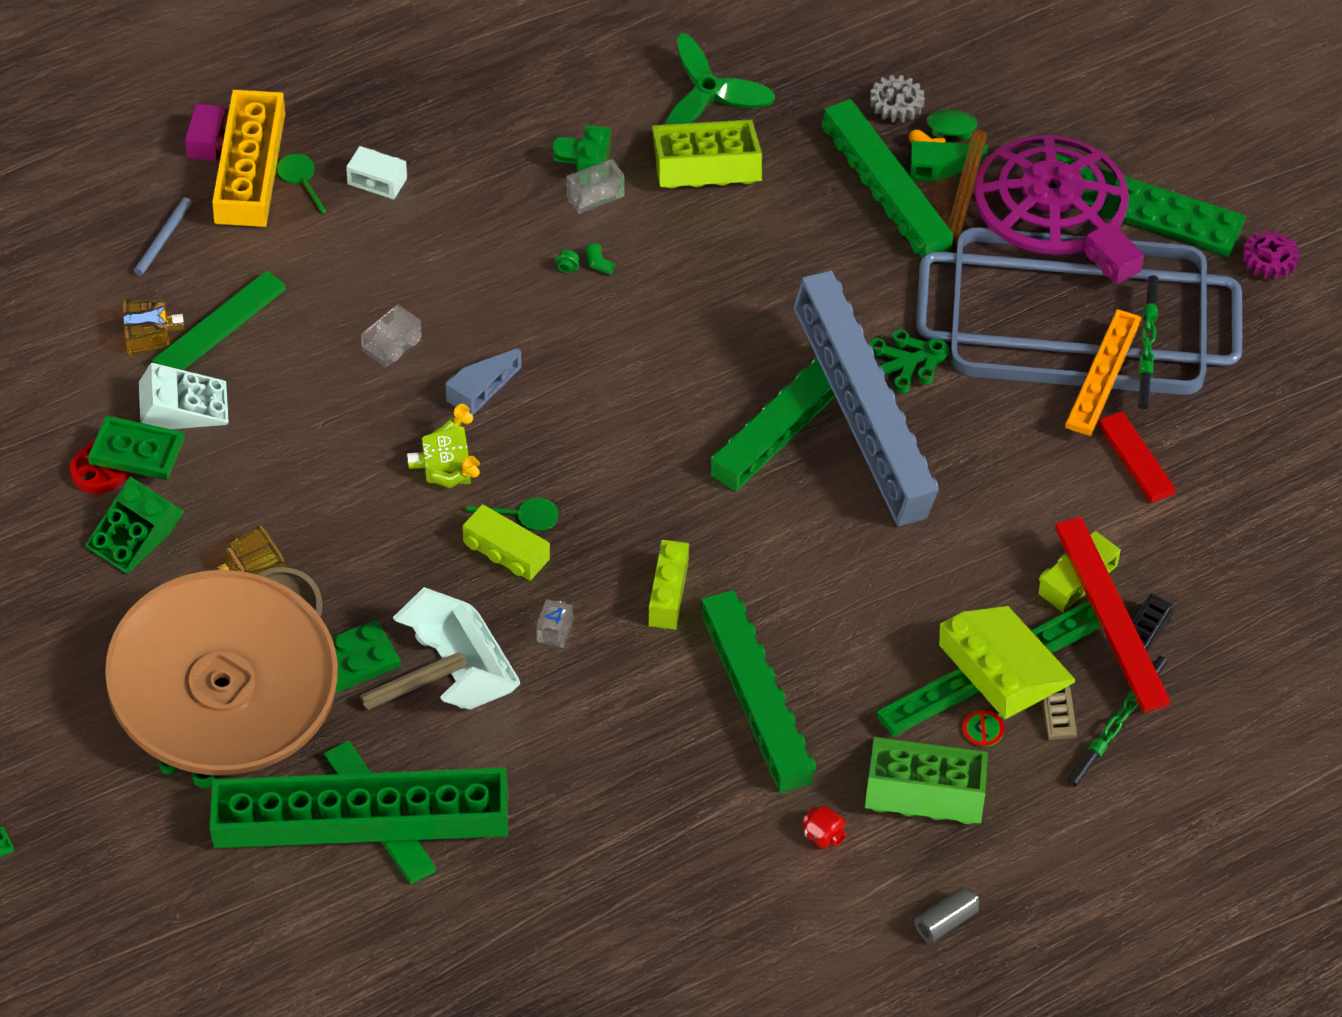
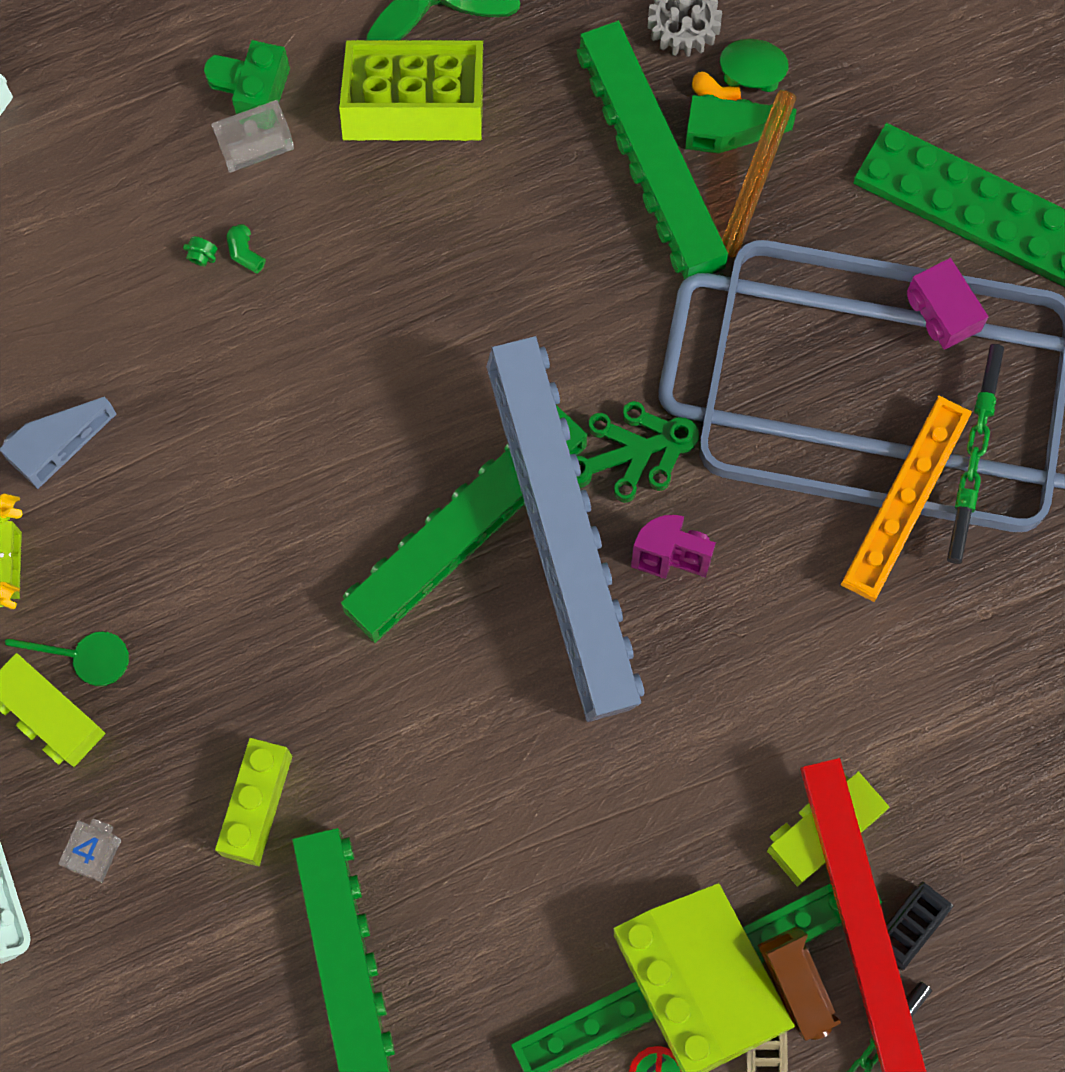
camera: 10 degrees right, 20 degrees up
(943, 411) = (664, 545): none -> magenta brick
(1046, 199) = (867, 208): magenta dish -> none
(1073, 653) = (799, 984): none -> reddish brown window
(1136, 457) = (935, 636): red tile -> none

